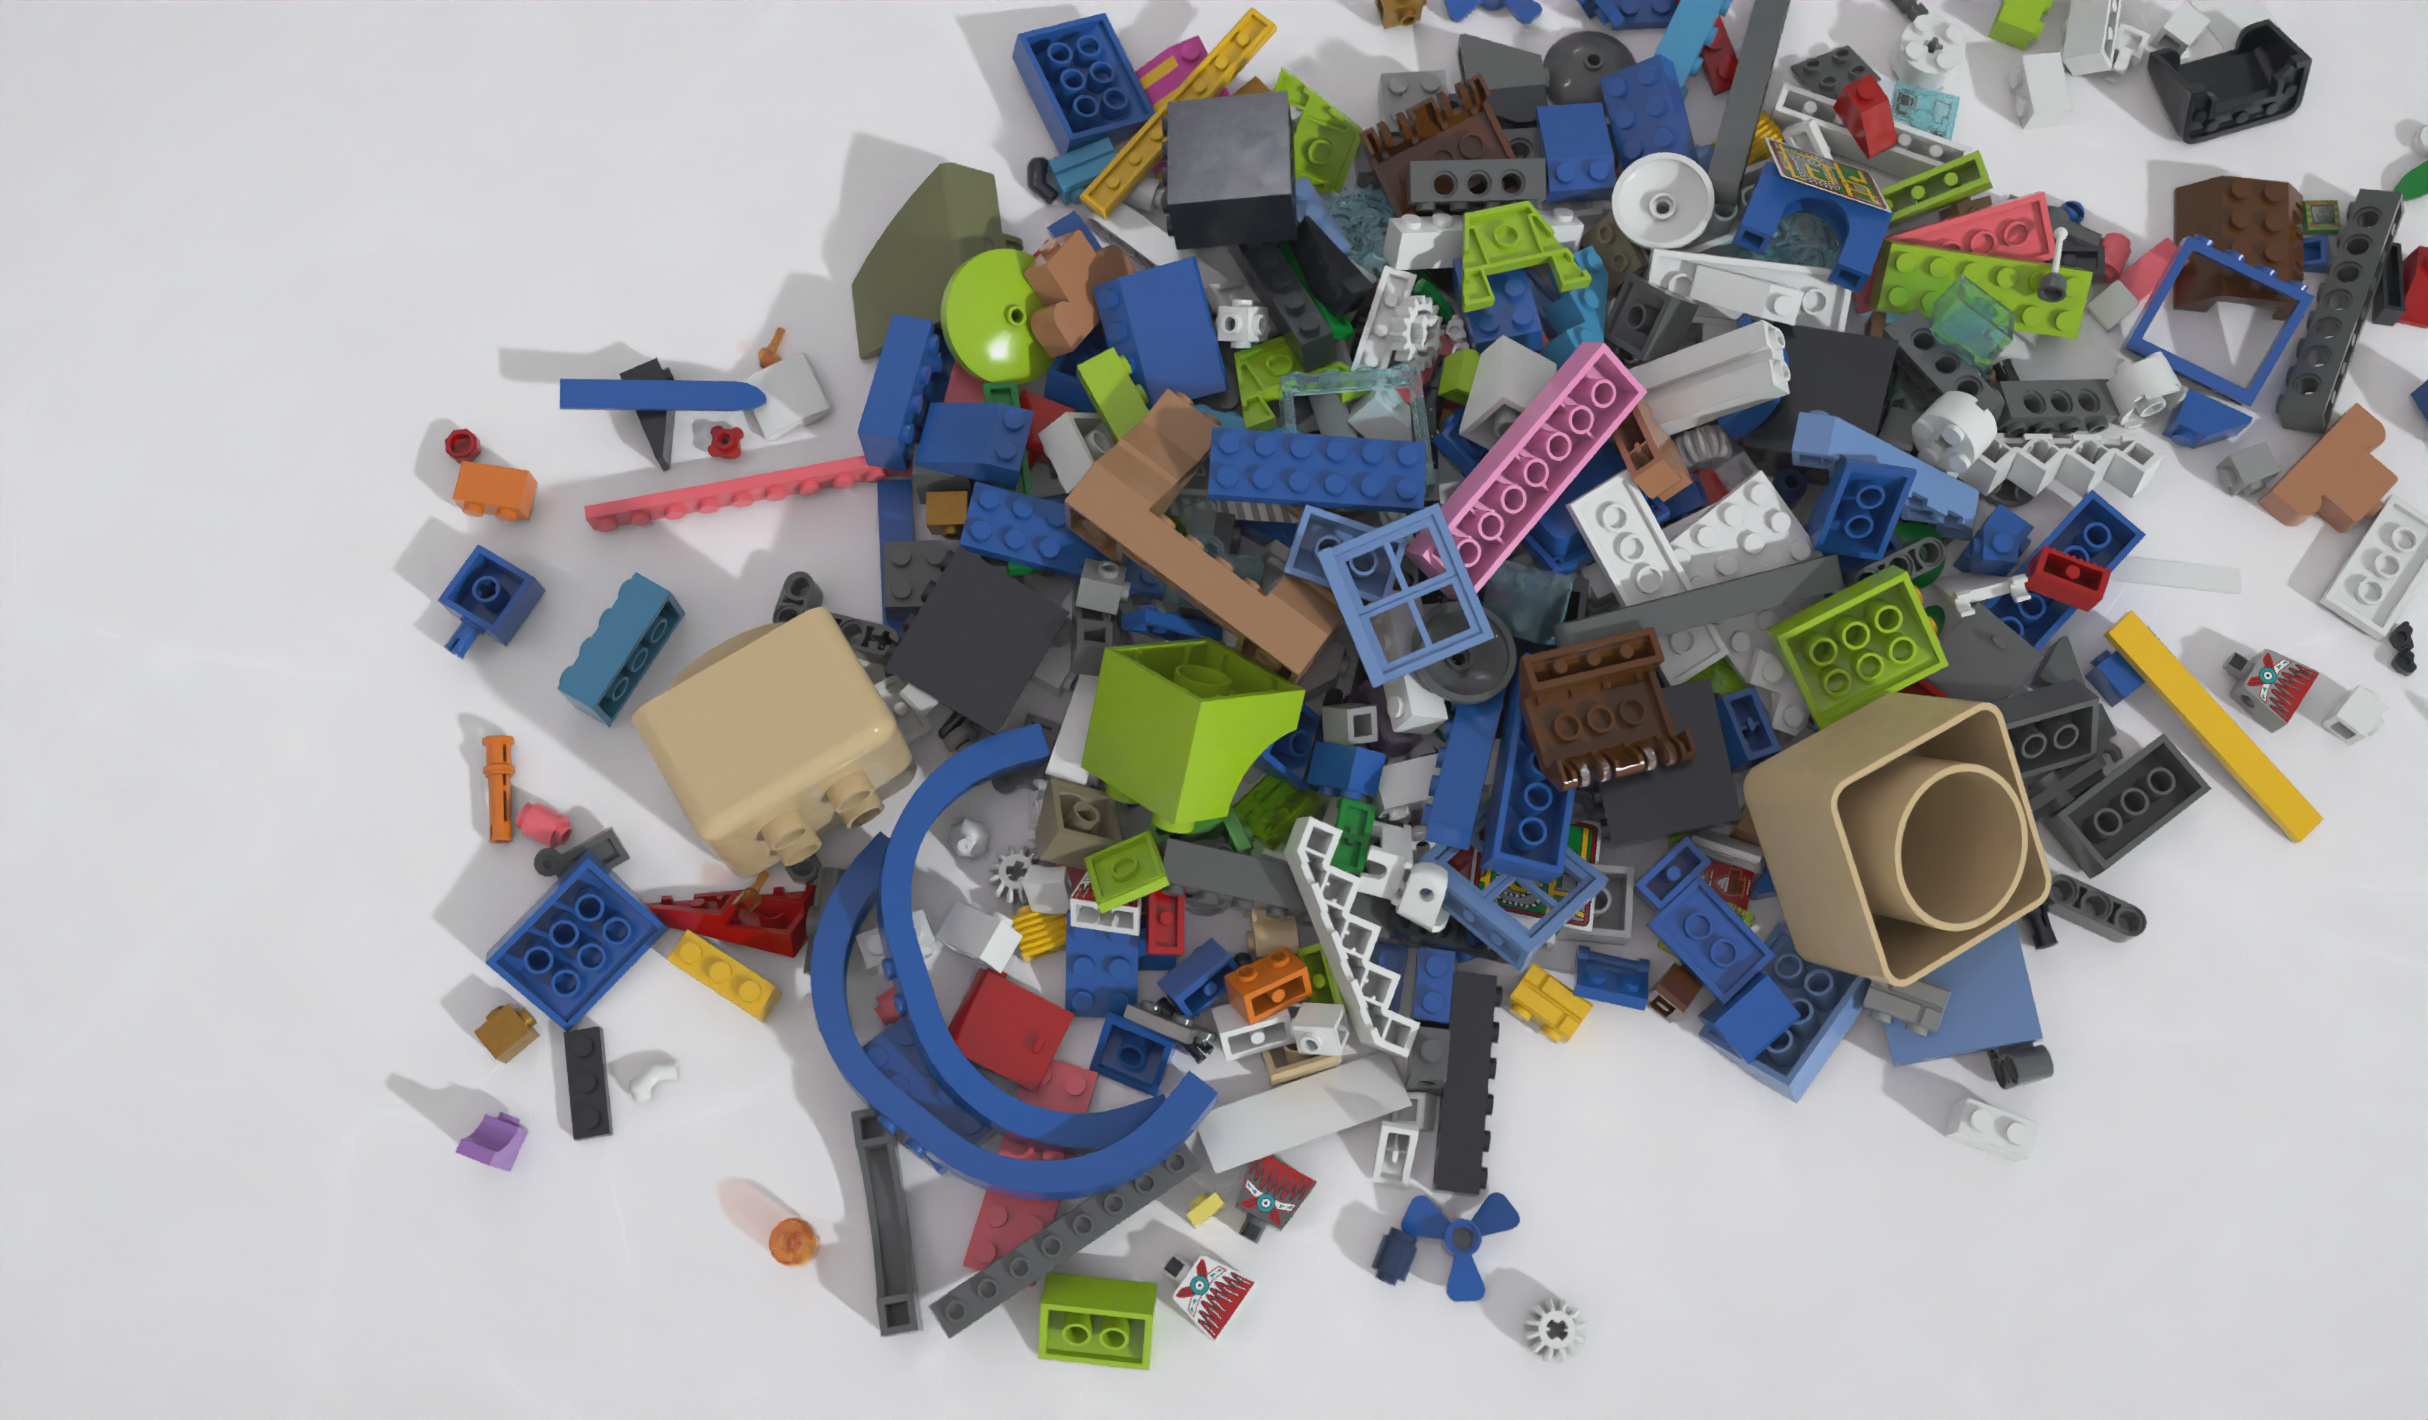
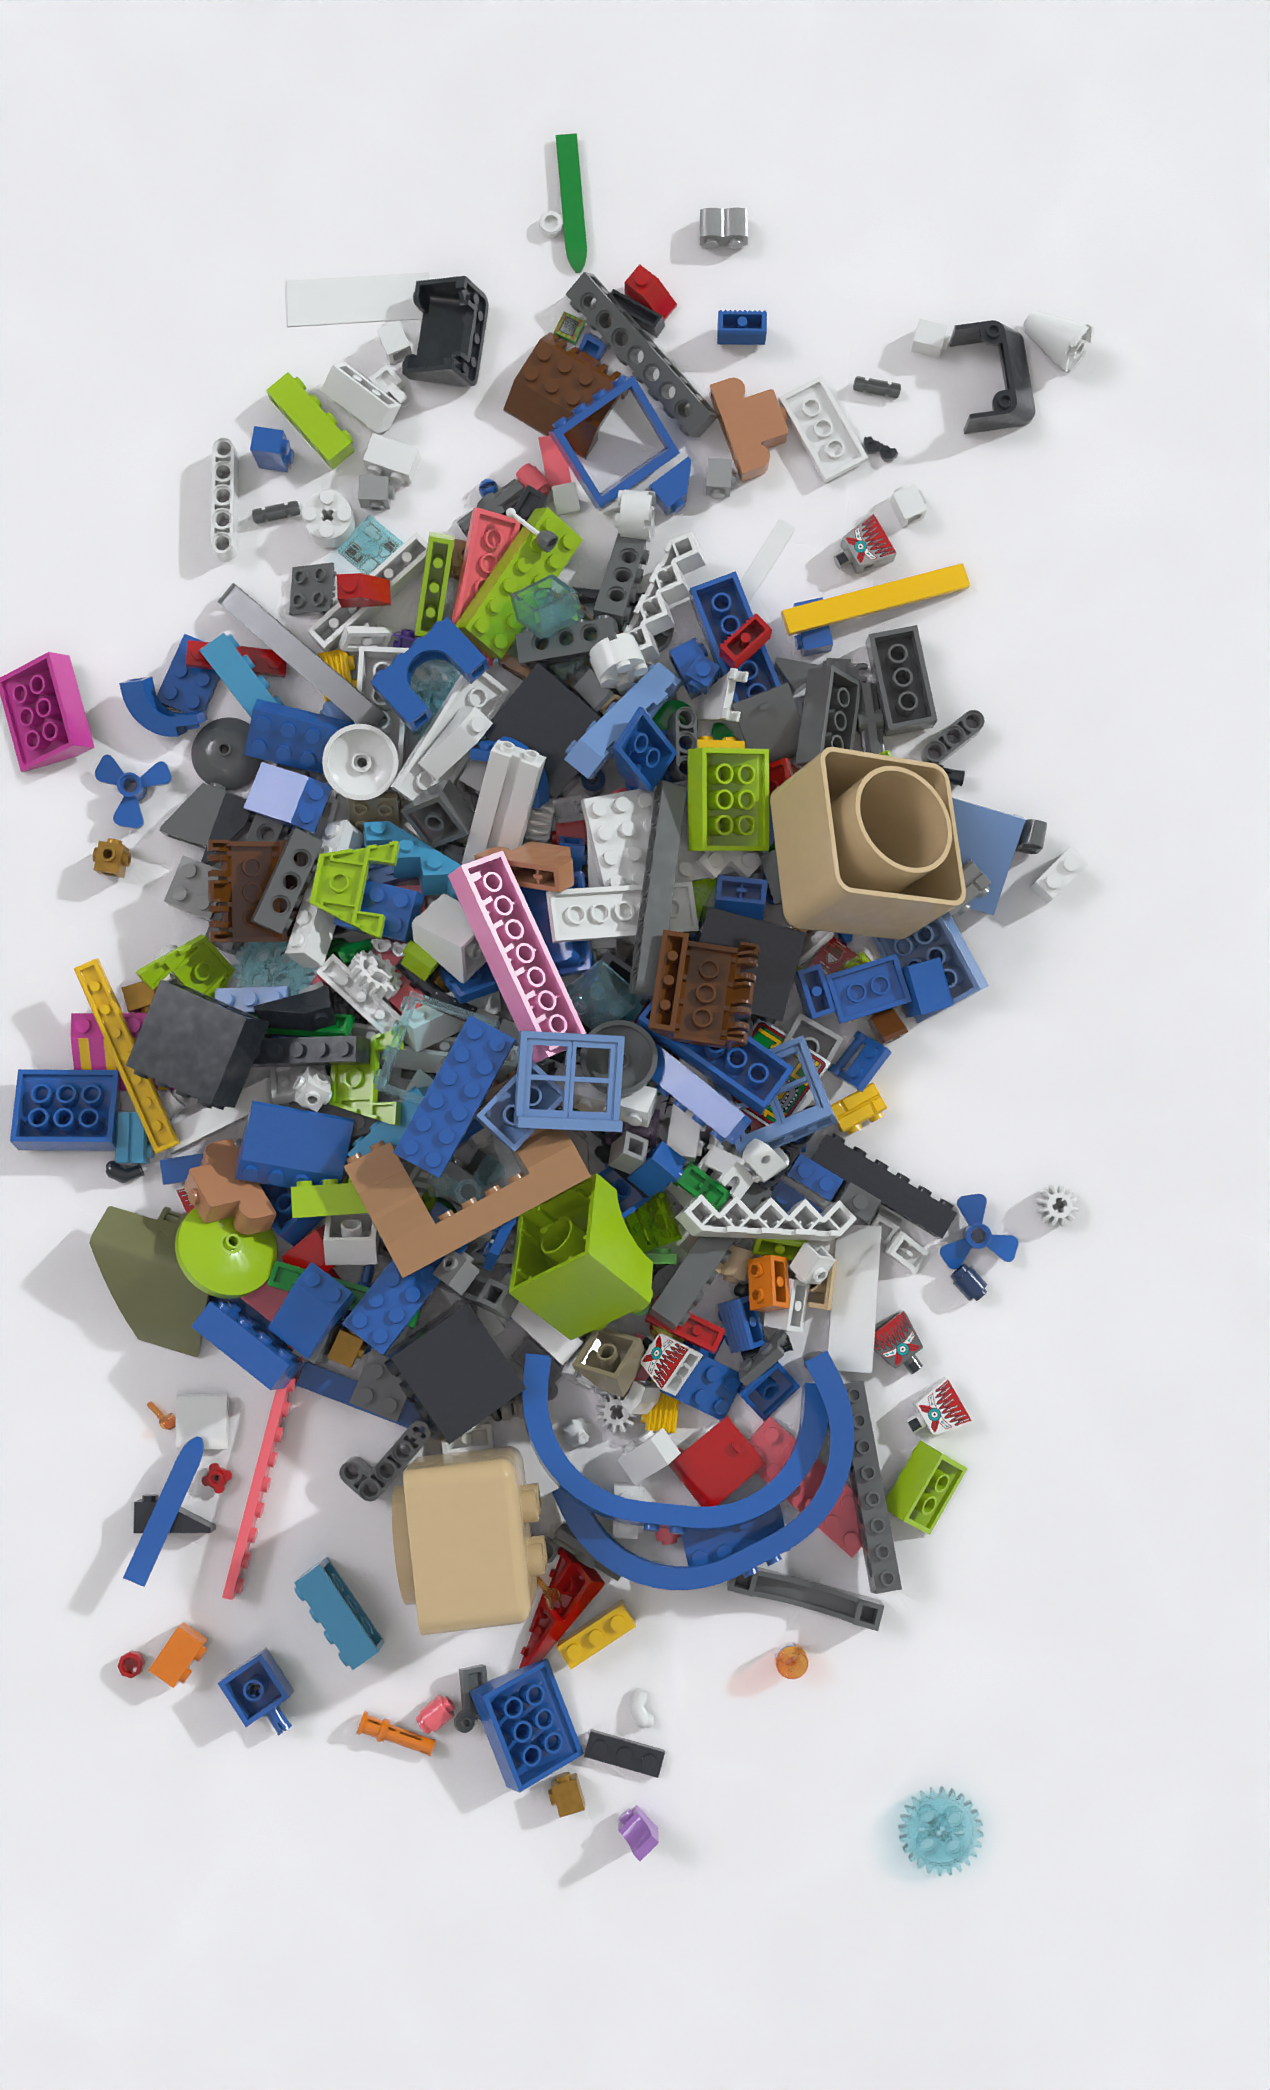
camera: 65 degrees left, 10 degrees up
(1126, 871) = (660, 1345): lime tile -> none
(1203, 1208) = (886, 1388): light yellow plate -> none
(1826, 174) = (395, 643): sticker -> none
(1990, 90) = (375, 492): none -> light grey brick

